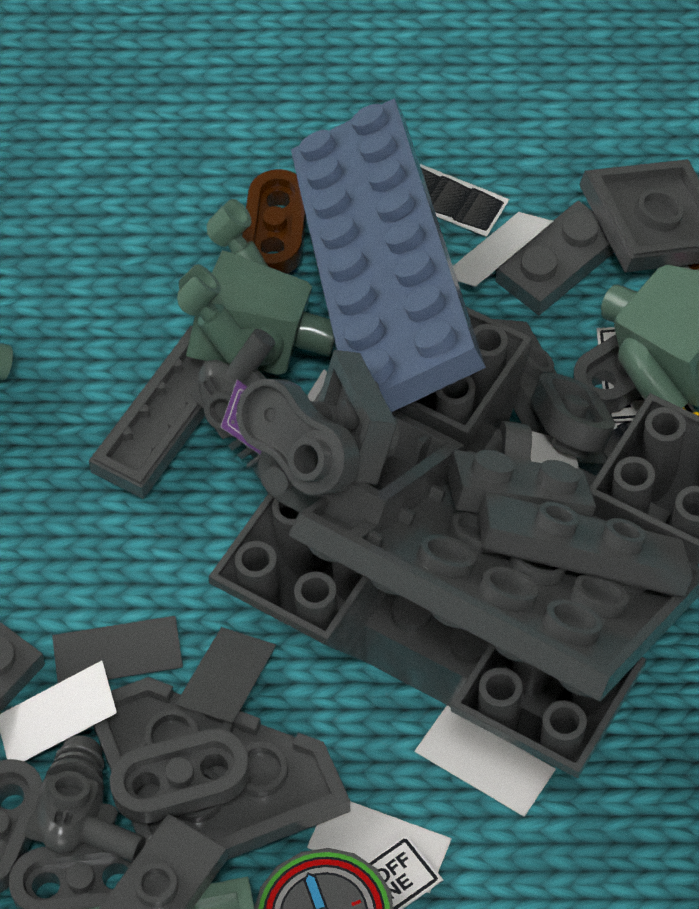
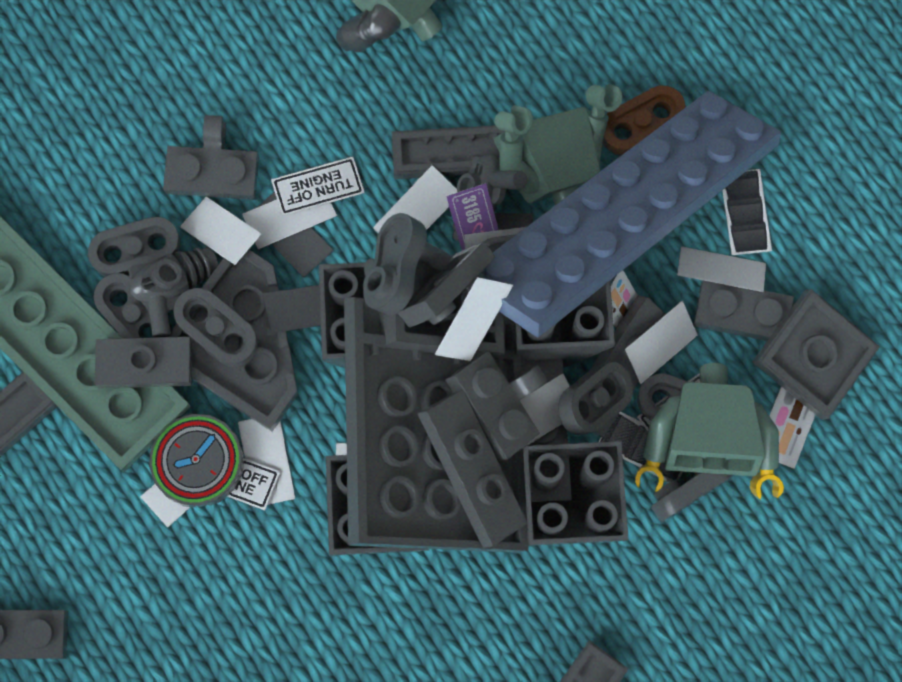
camera: 55 degrees right, 20 degrees up
(84, 585) = (317, 186): none -> white sticker
(95, 629) = (275, 227): none -> white sticker
(200, 494) = (424, 200): none -> white sticker
(414, 421) = (473, 319): none -> white sticker
(547, 347) = (661, 342): none -> white sticker

